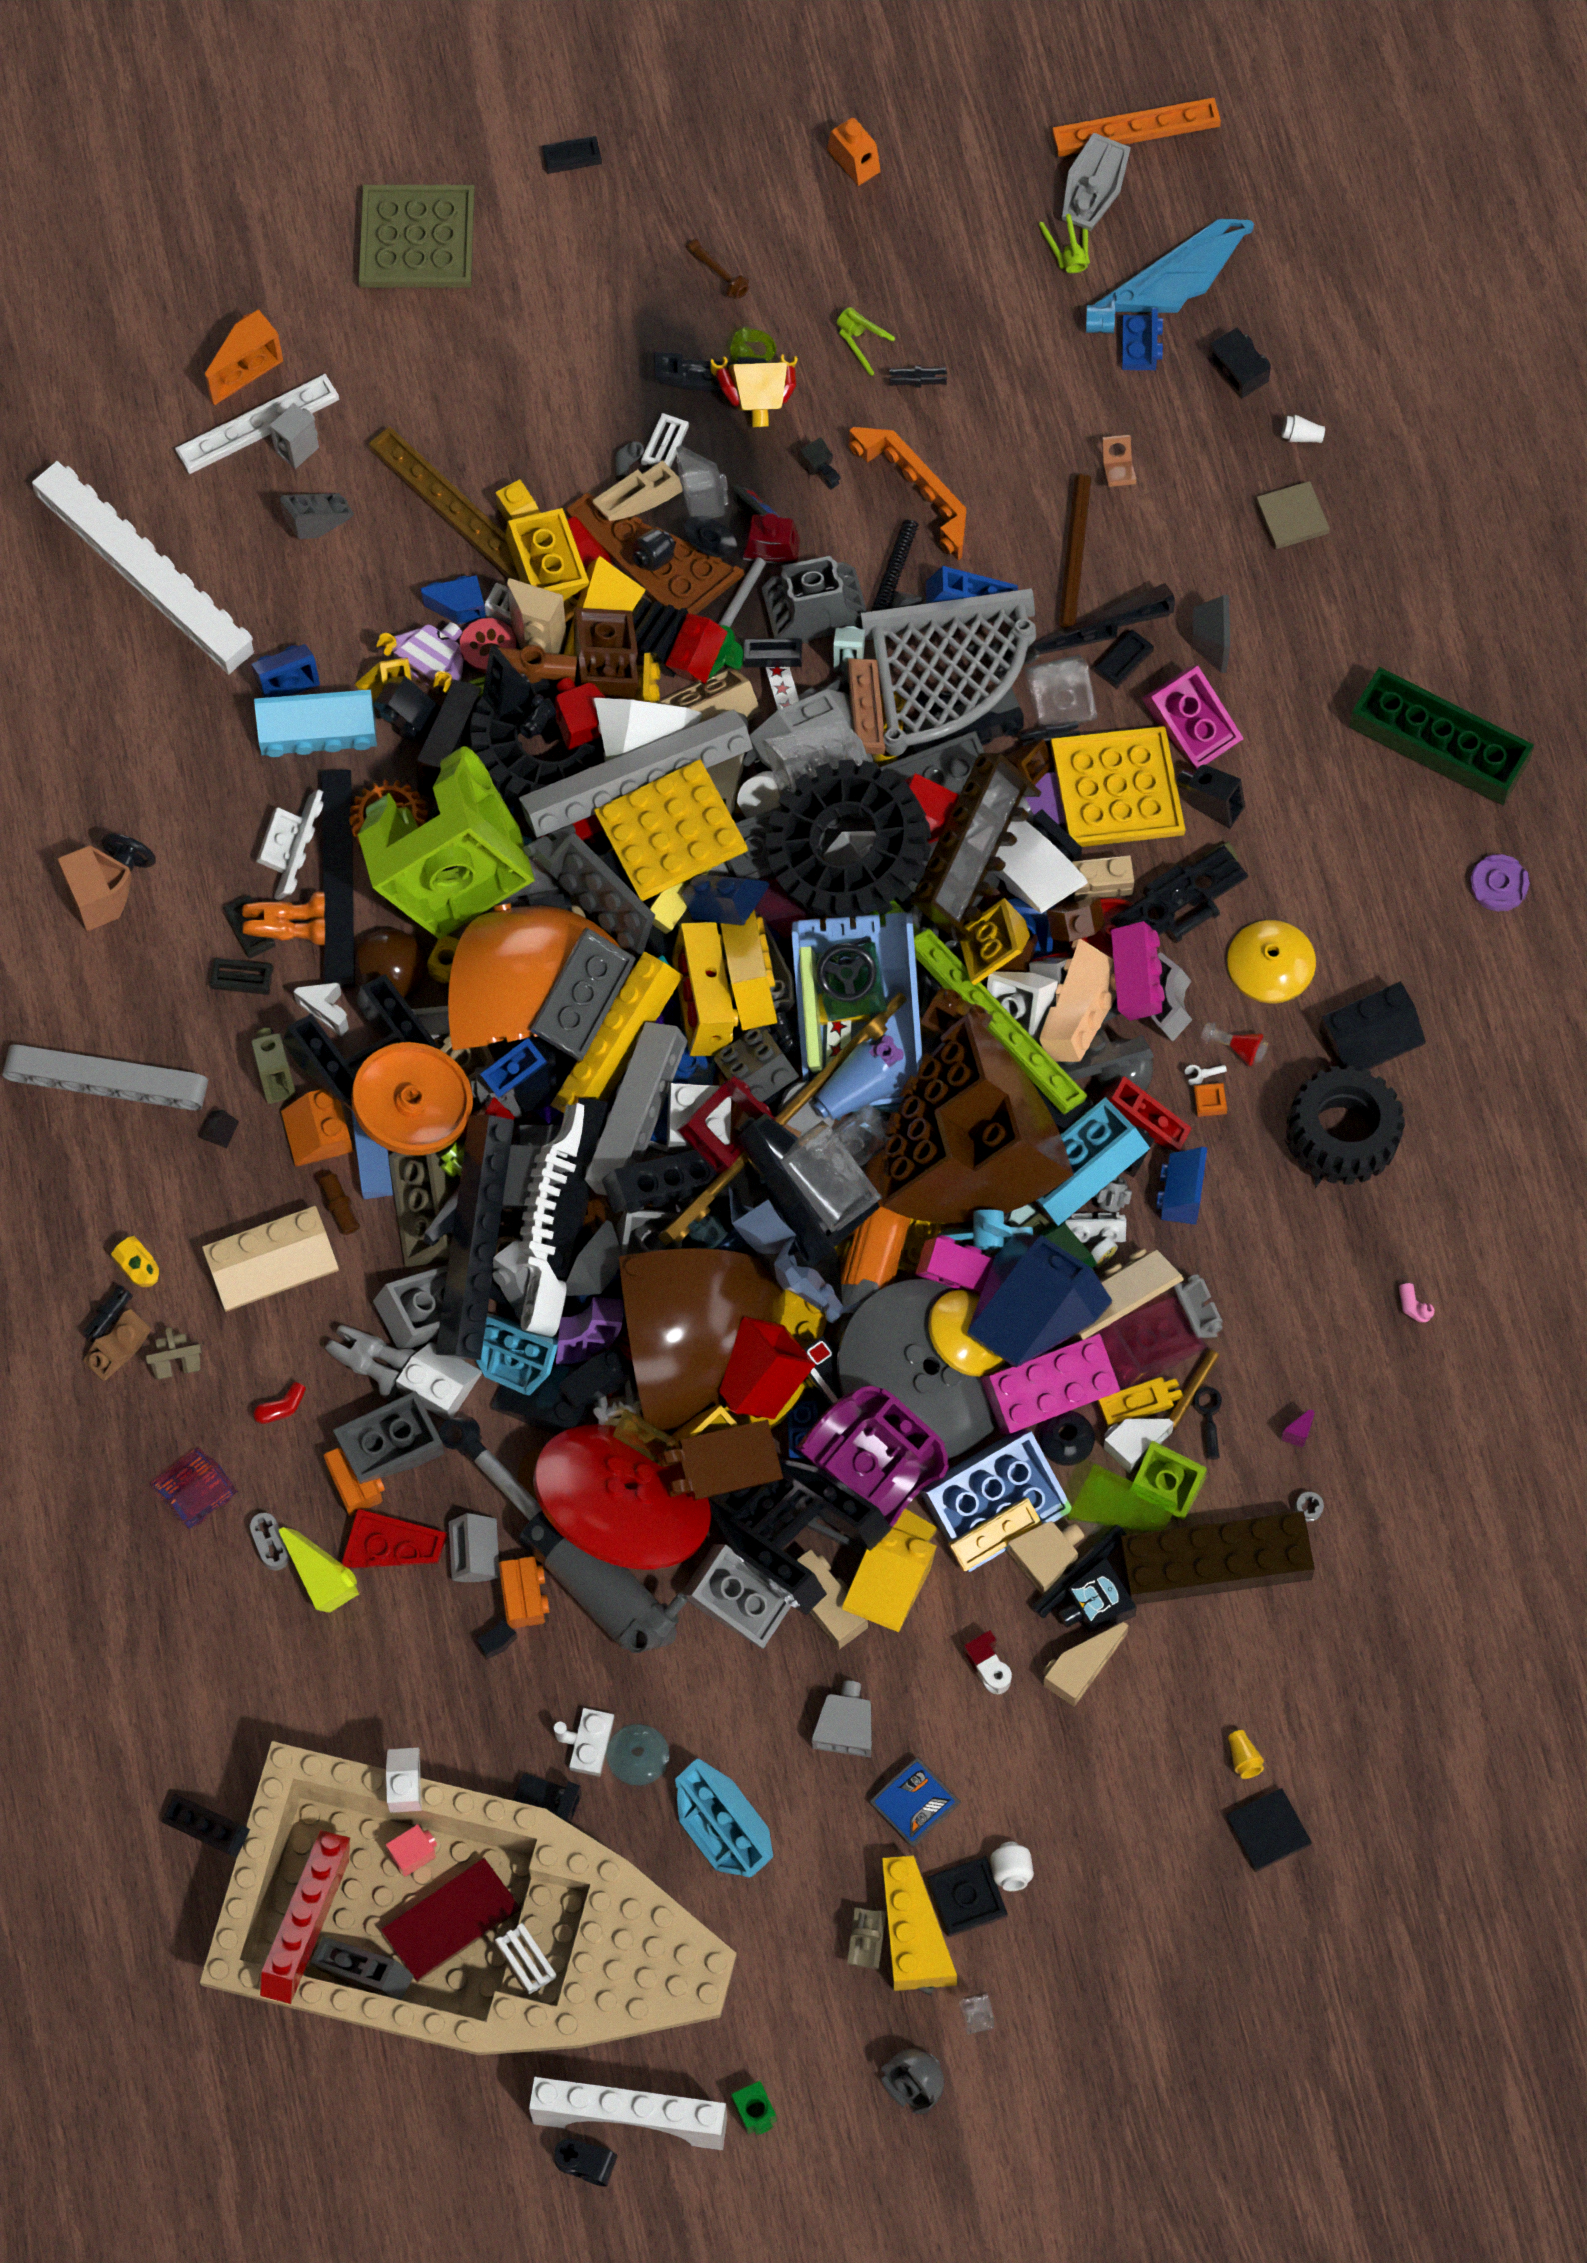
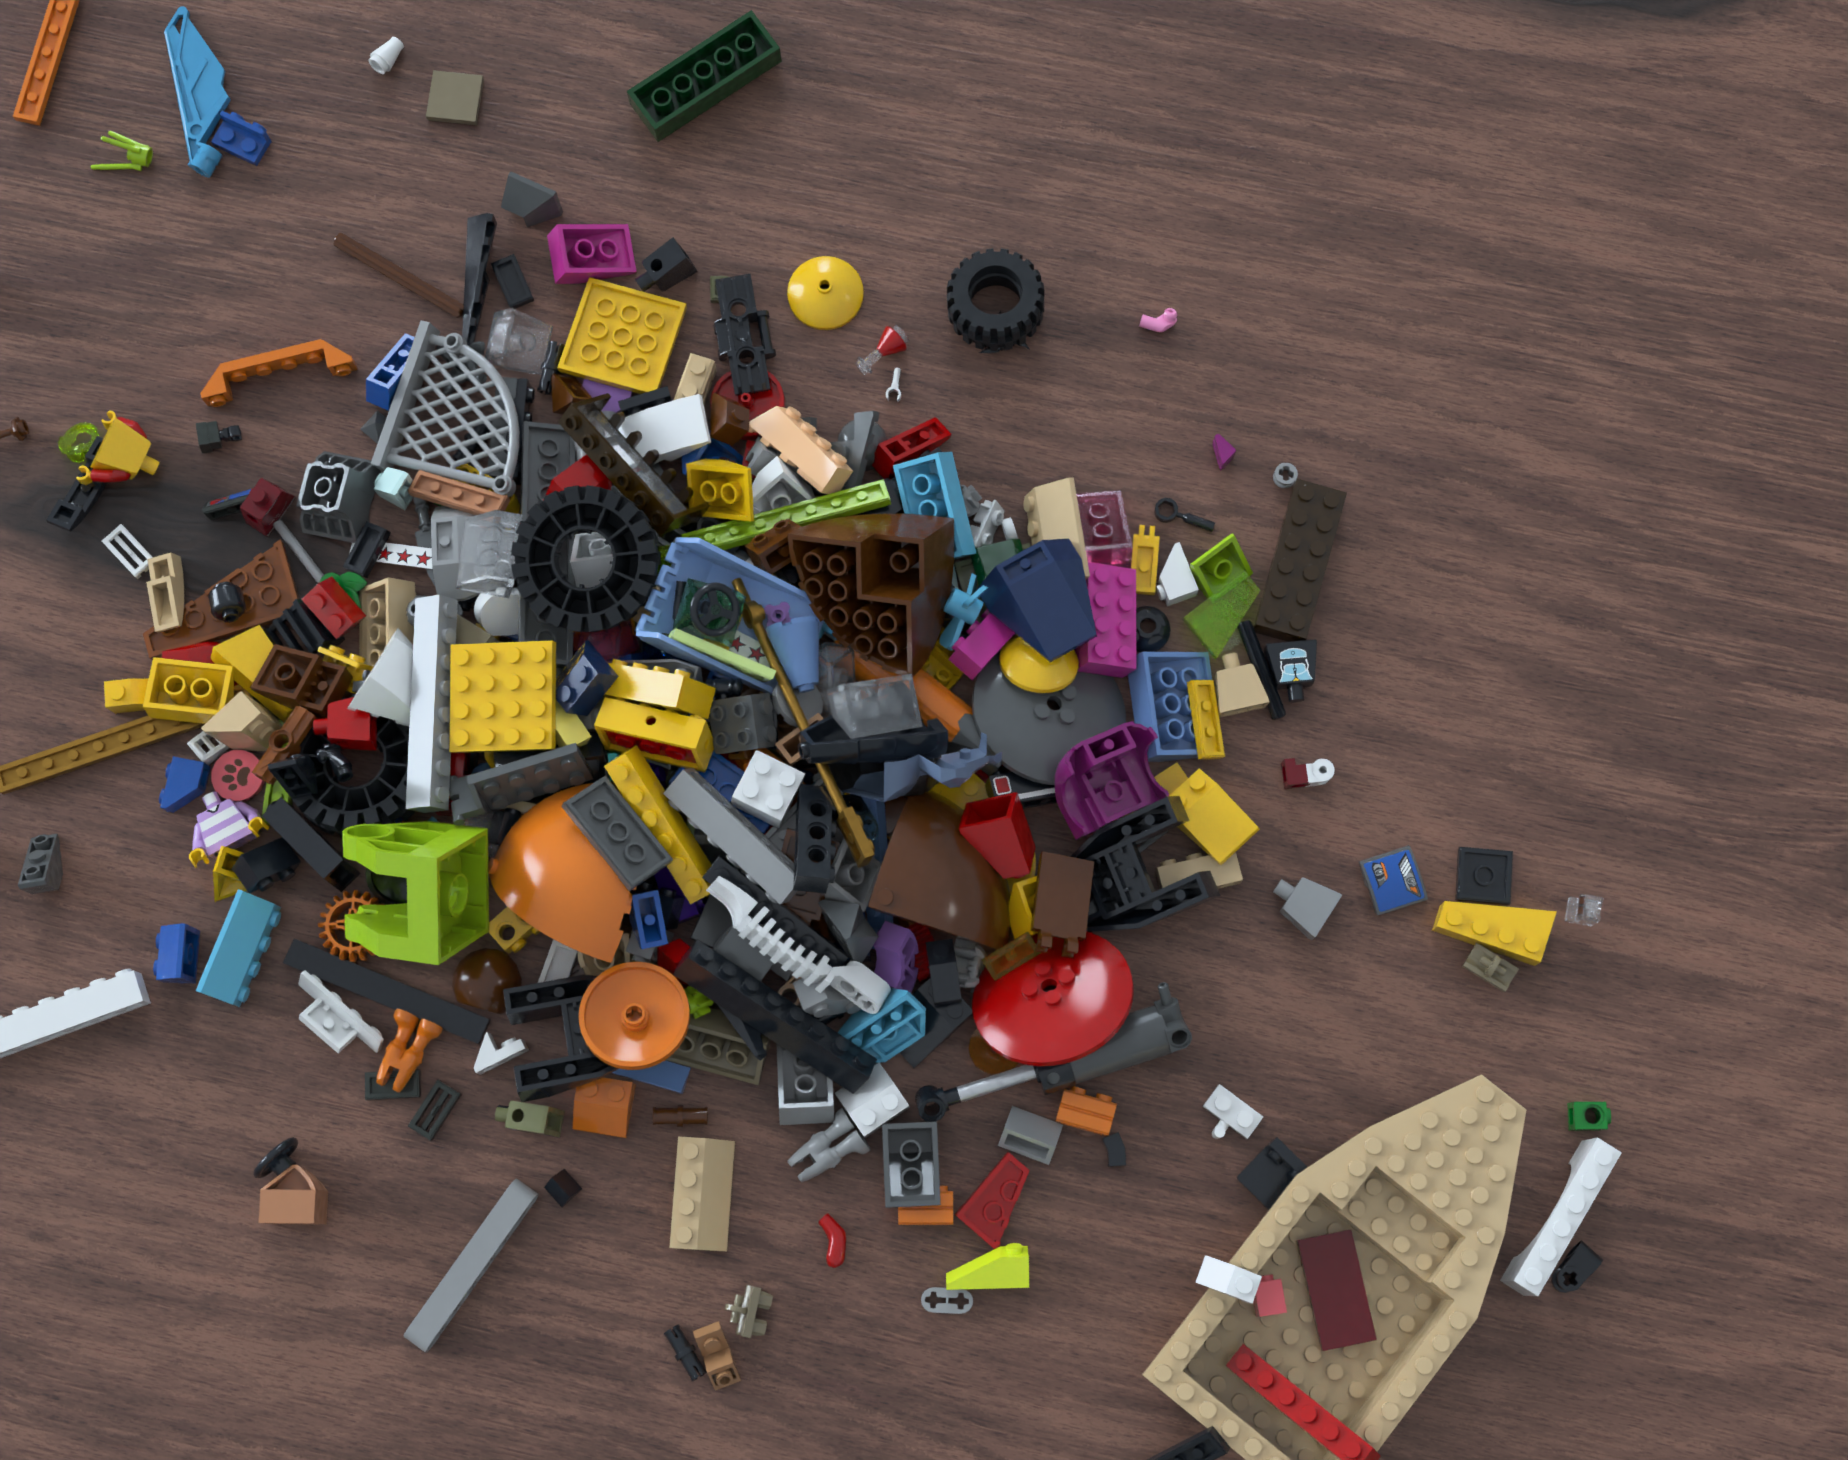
camera: 65 degrees left, 10 degrees up
(136, 1262) = (651, 1308): yellow rock -> none
(194, 1487) = (872, 1344): clear pink slope -> none
(362, 1968) = (1352, 1378): dark grey slope -> none
(511, 1936) = (1428, 1230): white tile -> none
(626, 457) = (126, 588): dark grey arm -> none
(639, 1769) = (1245, 1086): clear light blue dish -> none
(701, 484) = (187, 537): clear slope -> none
(704, 1140) = (797, 791): dark red window -> none
(710, 536) = (236, 552): black dish -> none
(722, 1821) = (1351, 1036): medium azure wedge -> none
(735, 1596) = (1164, 945): light grey slope -> none
(799, 1423) = (1049, 829): blue slope -> none
(855, 324) = (104, 352): lime plant -> none
(894, 554) = (355, 435): black piece -> none
(914, 2079) = (1617, 980): dark grey cylinder -> none
(918, 376) = (179, 323): black pin -> none
(1012, 1866) = (1478, 830): white head -> none
(1080, 1665) = (1341, 706): tan slope -> none
(1094, 180) = (79, 106): light grey piece -> none
(1118, 468) = (343, 208): nougat bracket -> none
(1137, 970) = (795, 391): dark pink brick -> none
(1174, 985) = (821, 384): light grey brick -> none
(1183, 1186) = (986, 443): blue slope -> none
(1192, 1388) = (1150, 516): pearl gold bar -> none
(1203, 1319) = (1100, 482): light grey hinge -> none
(1210, 1099) = (918, 392): orange tile -> none
(1239, 362) = (301, 73): black brick -> none
(1245, 1756) = (1463, 615): yellow cone -> none
(1268, 1830) = (1528, 625): black tile -> none
(1373, 1029) = (923, 244): black slope -> none
(1499, 883) = (844, 95): medium lavender tile -> none

